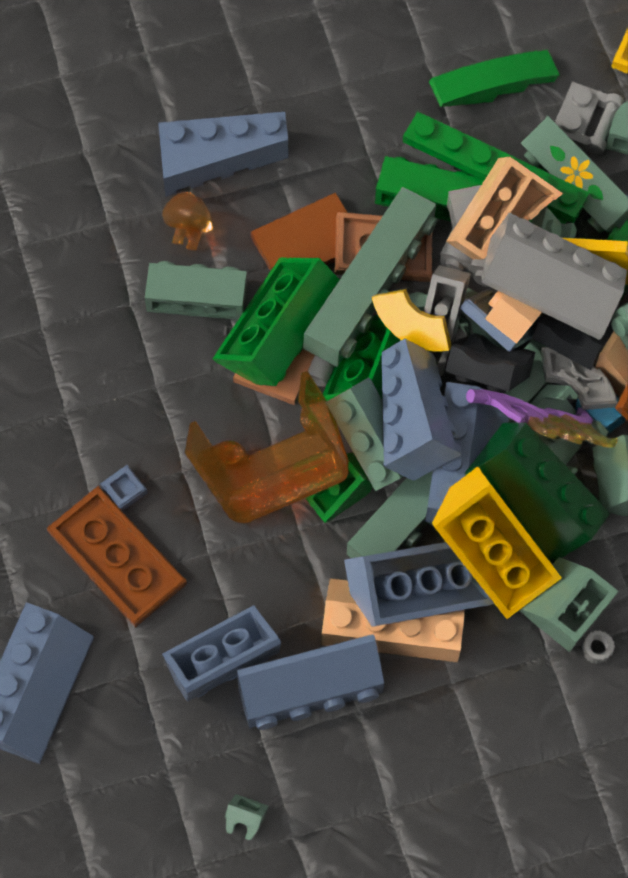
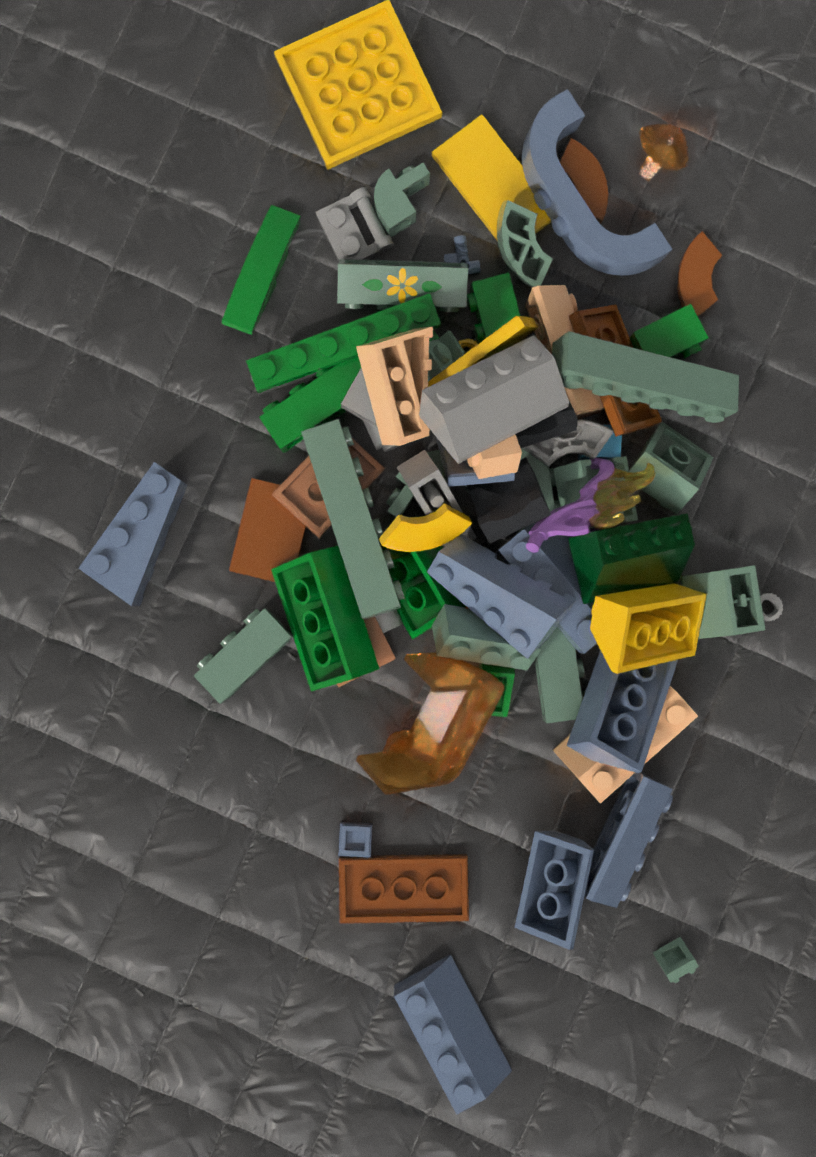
camera: 50 degrees left, 20 degrees up
(189, 217) = (178, 609): clear orange piece -> none

